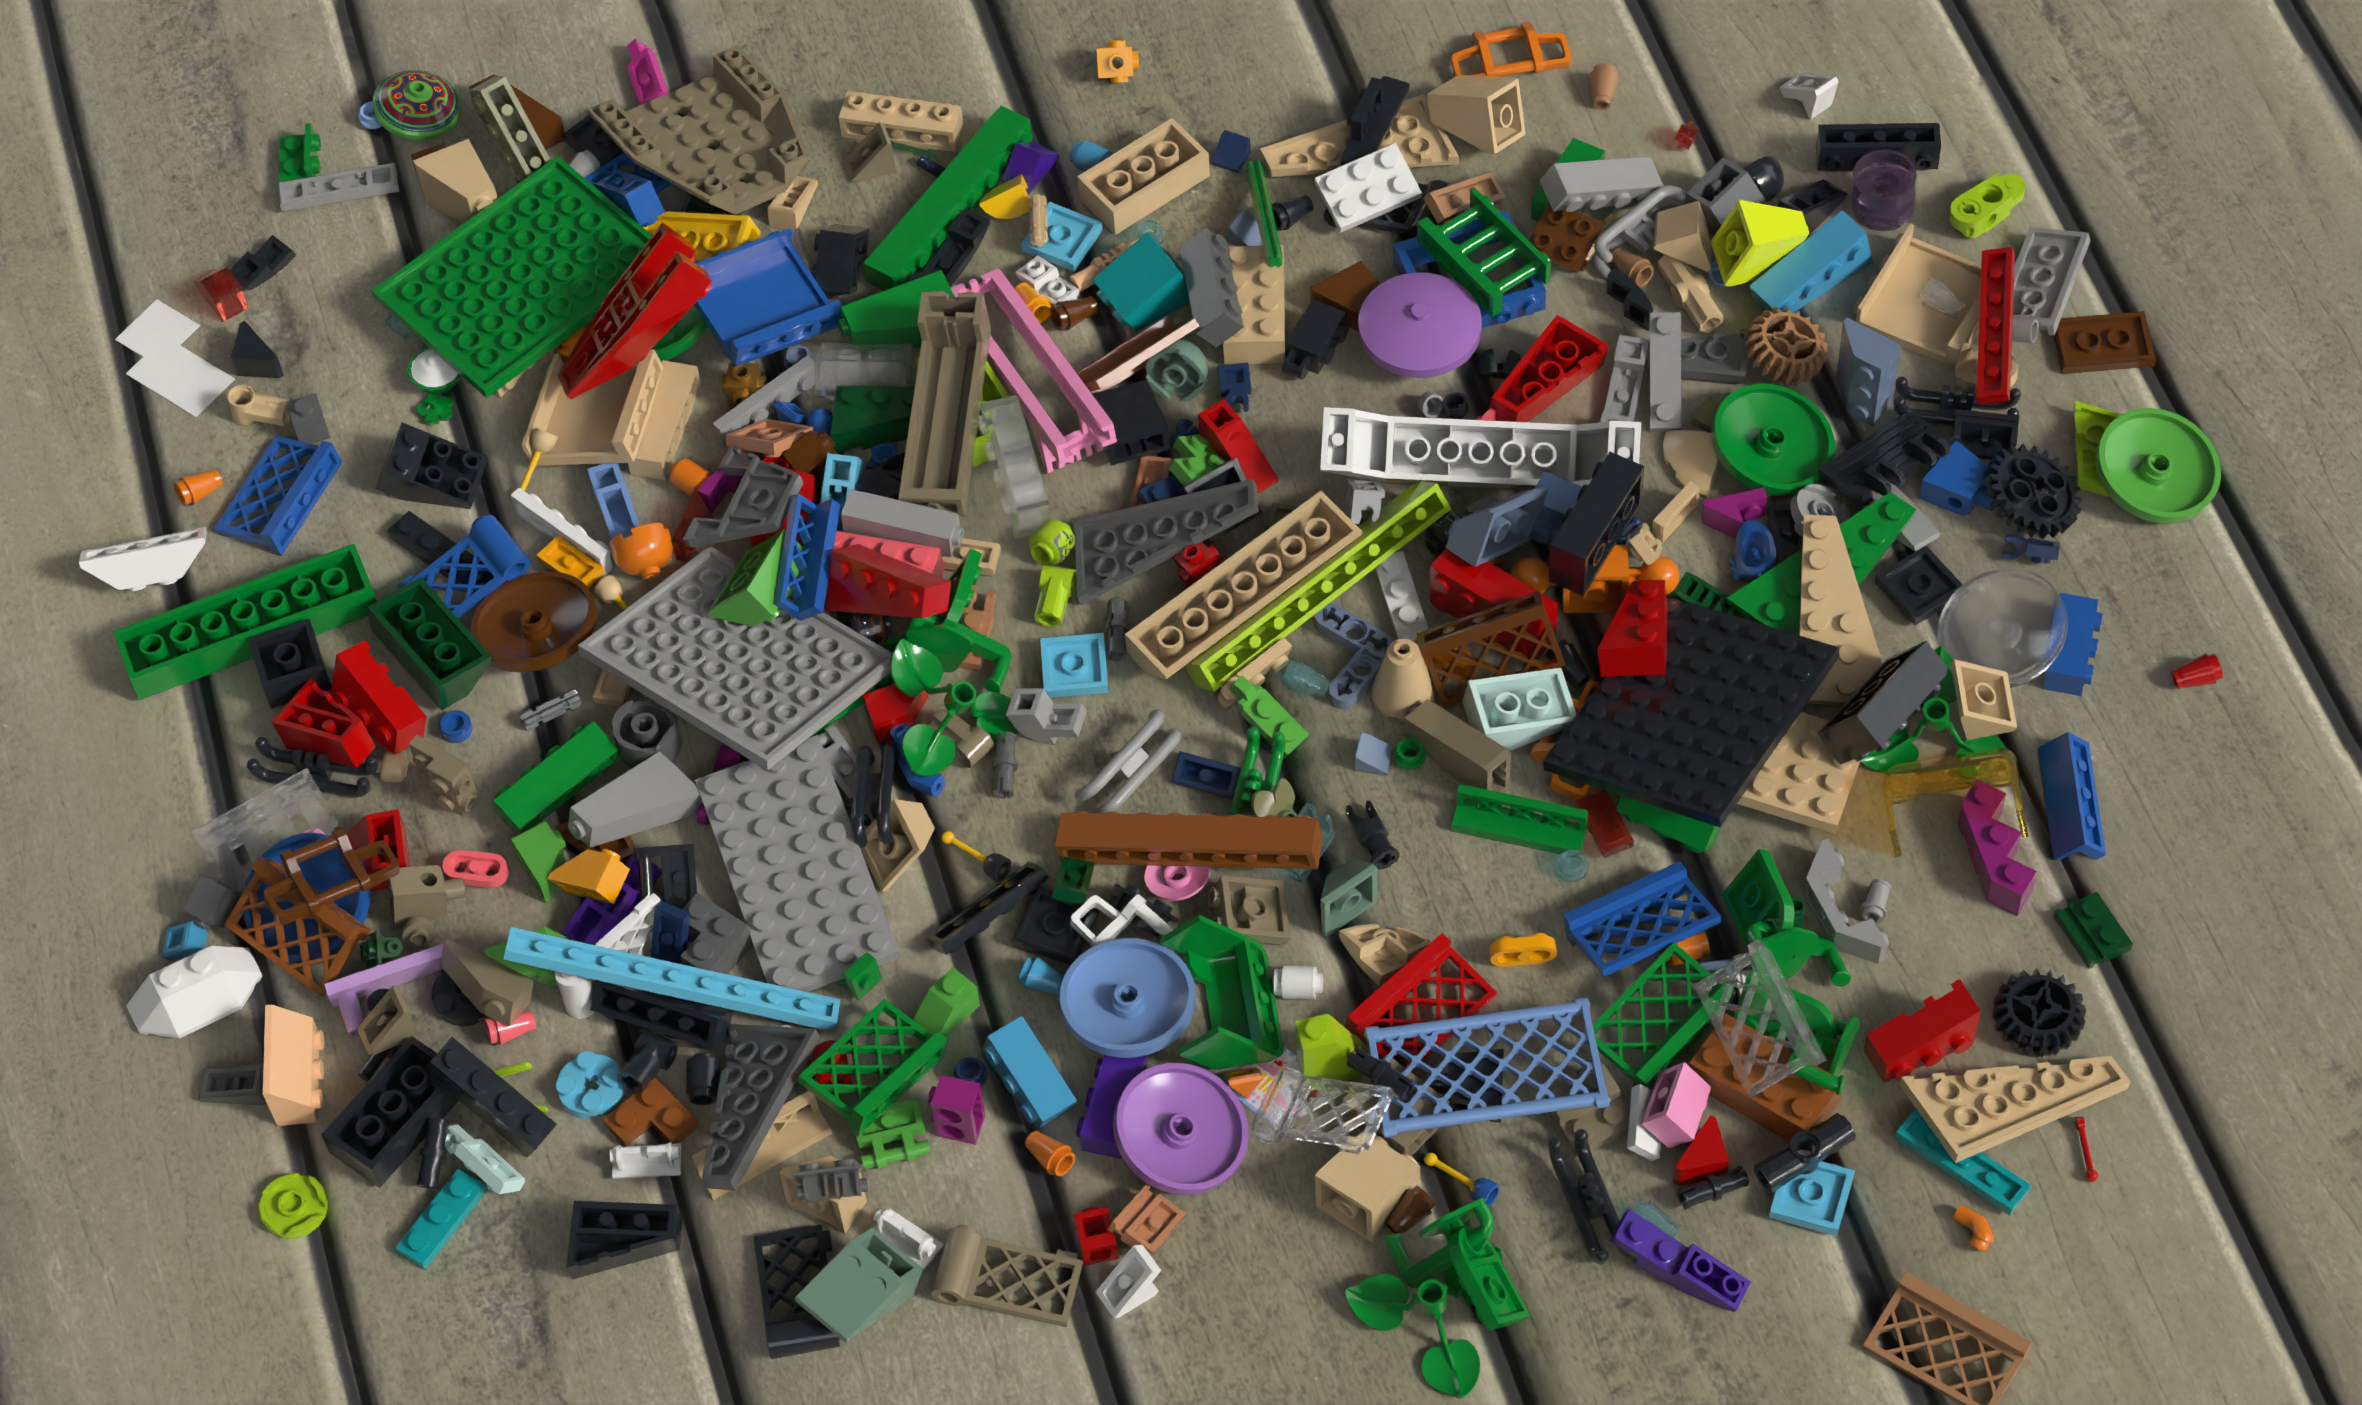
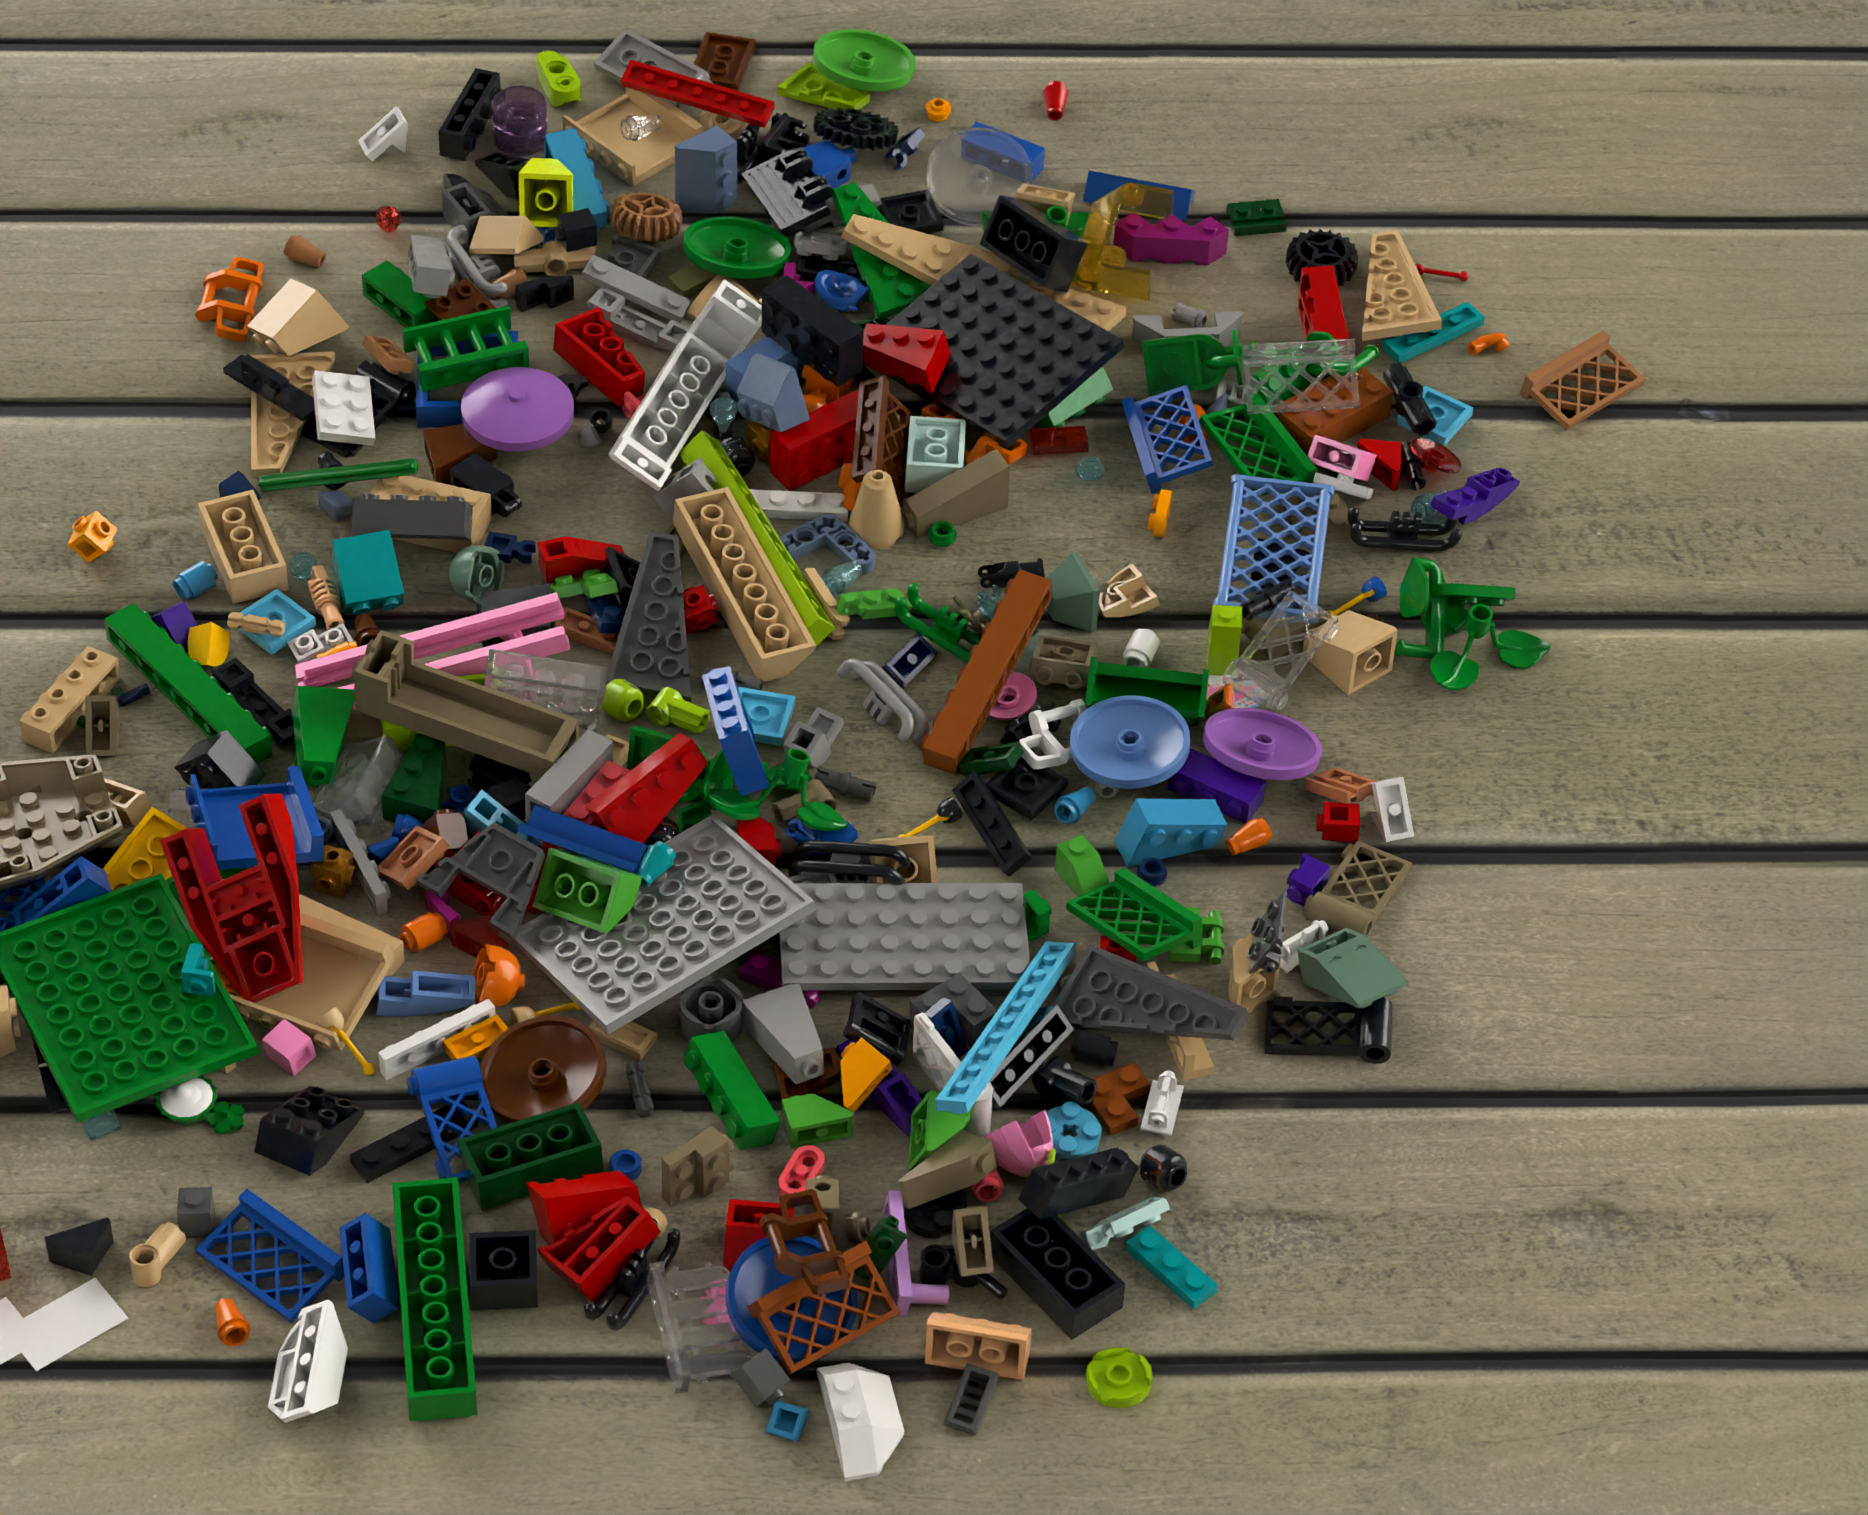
camera: 80 degrees left, 10 degrees down
(267, 557) = (369, 1268): none -> blue brick
(432, 1153) = (1110, 1253): black pin -> none
(512, 421) = (289, 1047): none -> bright pink panel
(543, 1038) = (1023, 1145): none -> bright pink hair
(545, 310) = (195, 973): none -> teal bracket
(556, 1178) = (1163, 1168): none -> black head
(620, 1234) = (1242, 1131): black wedge -> none
(805, 624) = (655, 862): none -> teal cone
(952, 624) = (735, 730): none -> blue arch
(957, 1109) = (1198, 874): magenta brick -> none
(998, 1221) = (1307, 879): none -> dark purple brick
(1133, 354) = (432, 585): dark orange fence -> none
(1372, 755) = (932, 558): sand blue slope -> none
(1406, 981) = (1171, 592): red fence -> none
(1490, 493) = (723, 410): none -> clear light blue plate
(1519, 823) = (1037, 486): green fence -> none
(1709, 286) = (576, 230): none -> black brick
(1747, 1204) = (1435, 456): none -> clear red dish
(2122, 570) = (938, 109): none -> light orange plate

